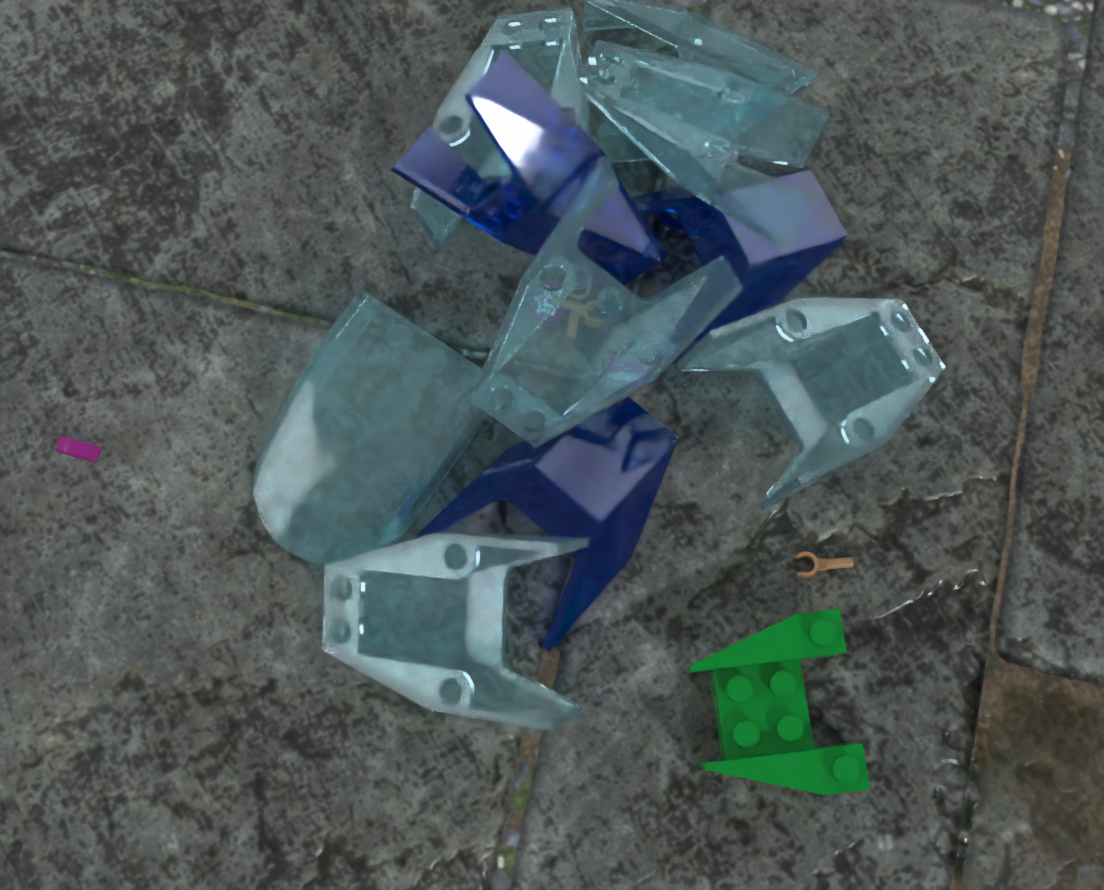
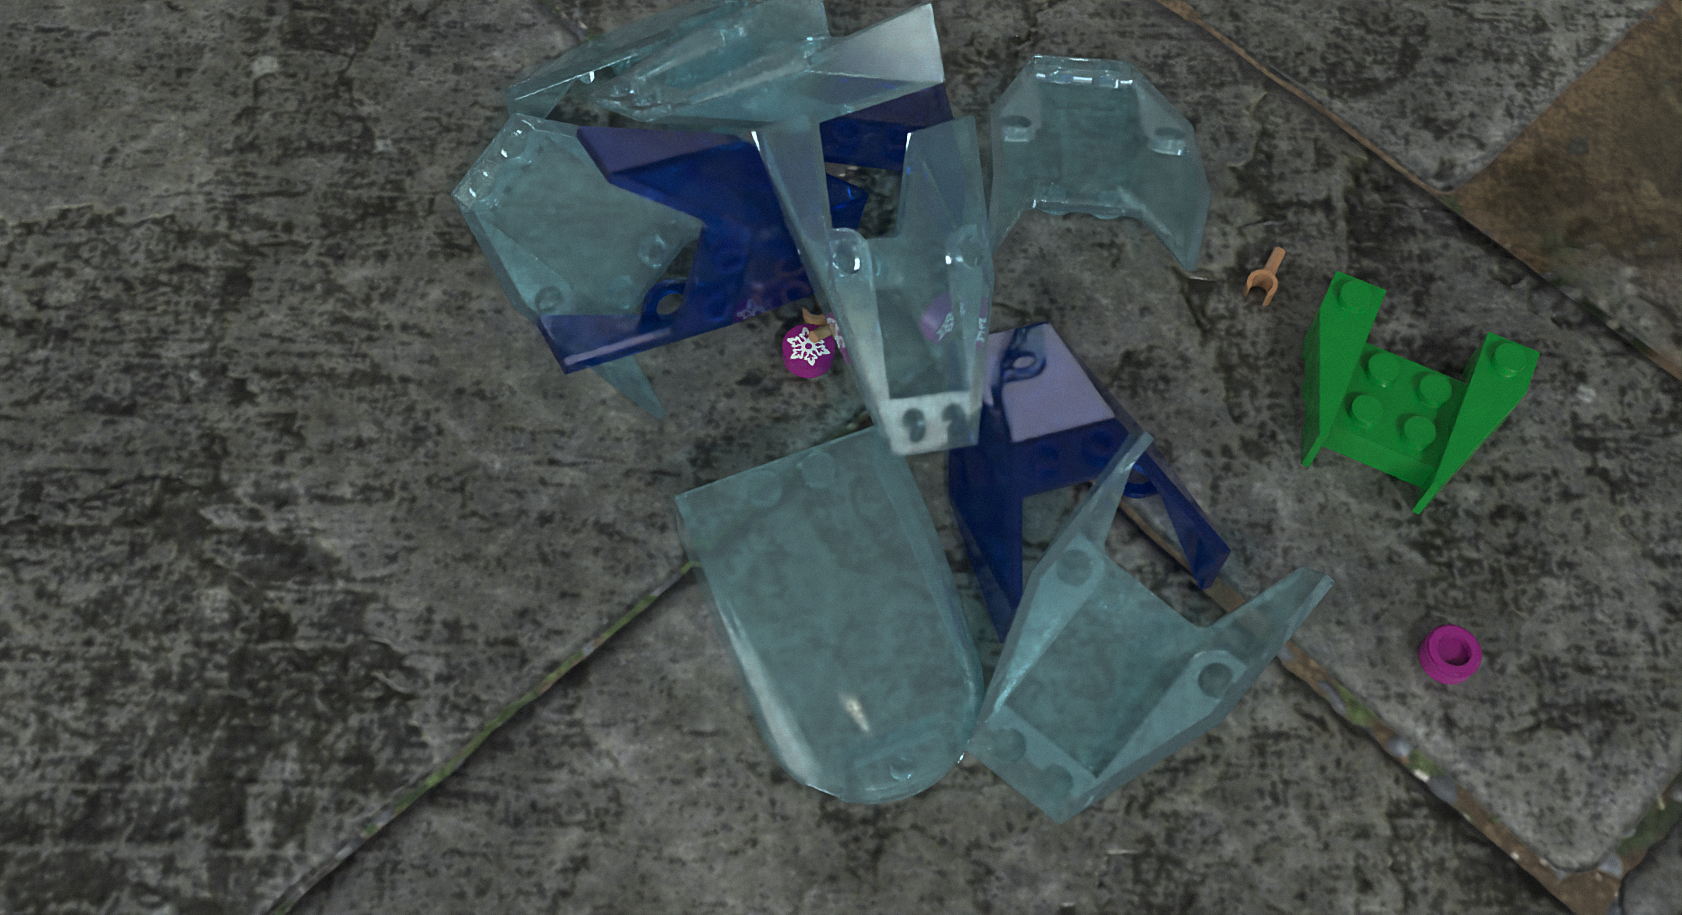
camera: 60 degrees left, 15 degrees down
(598, 839) = (1450, 654): none -> magenta tile

